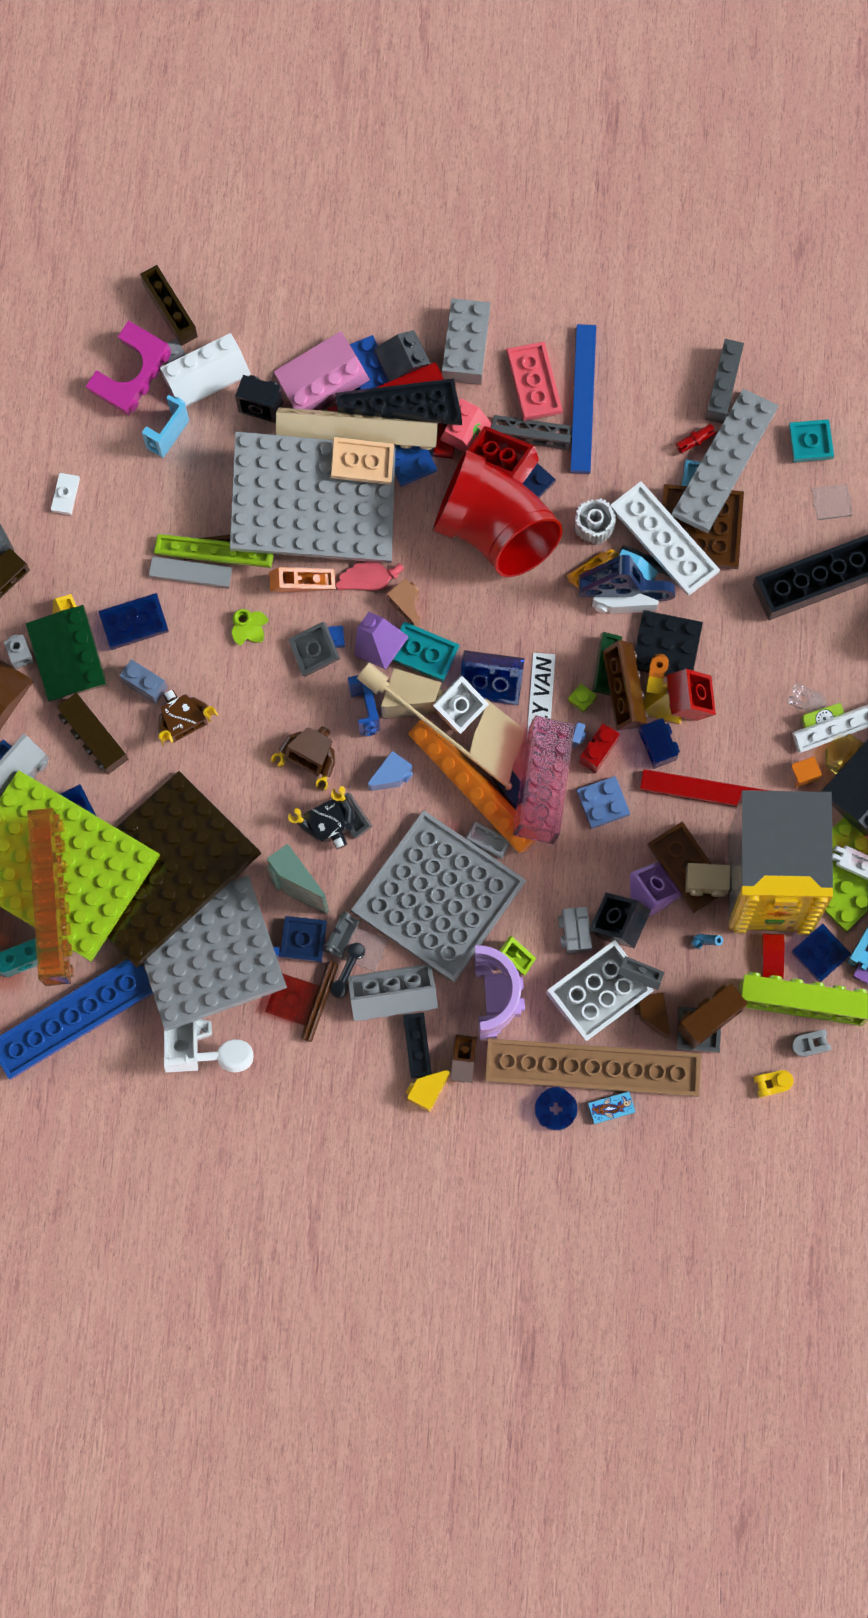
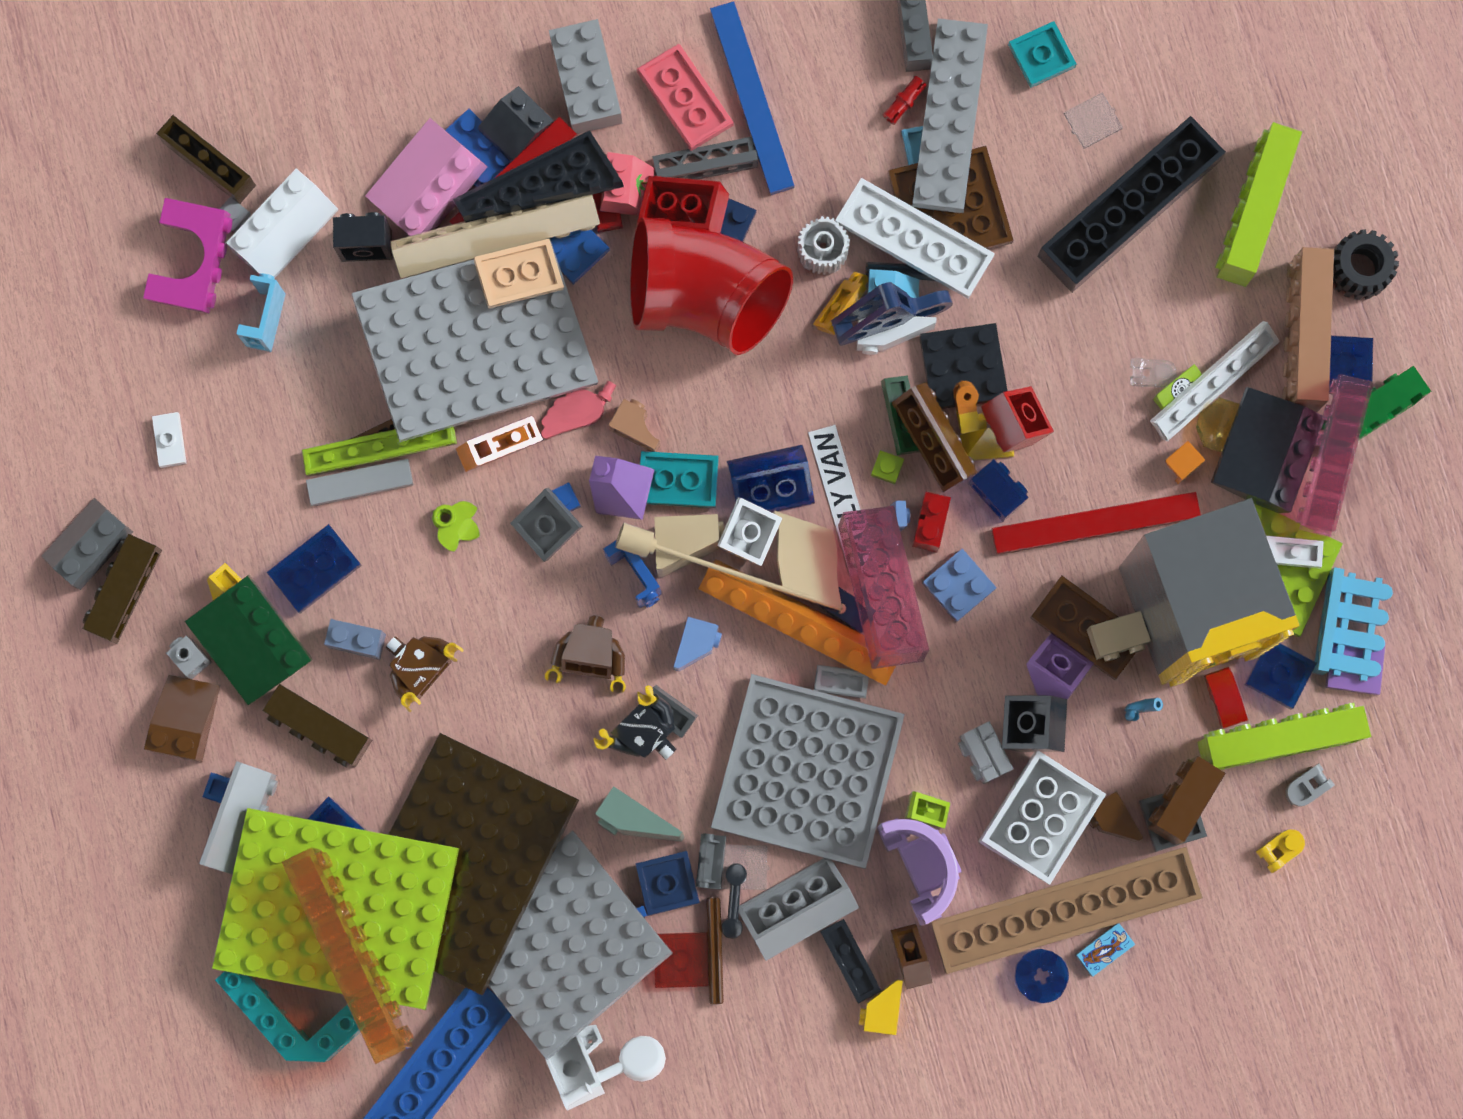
camera: 20 degrees left, 5 degrees up
(641, 973) = (1085, 780): dark grey plate -> none

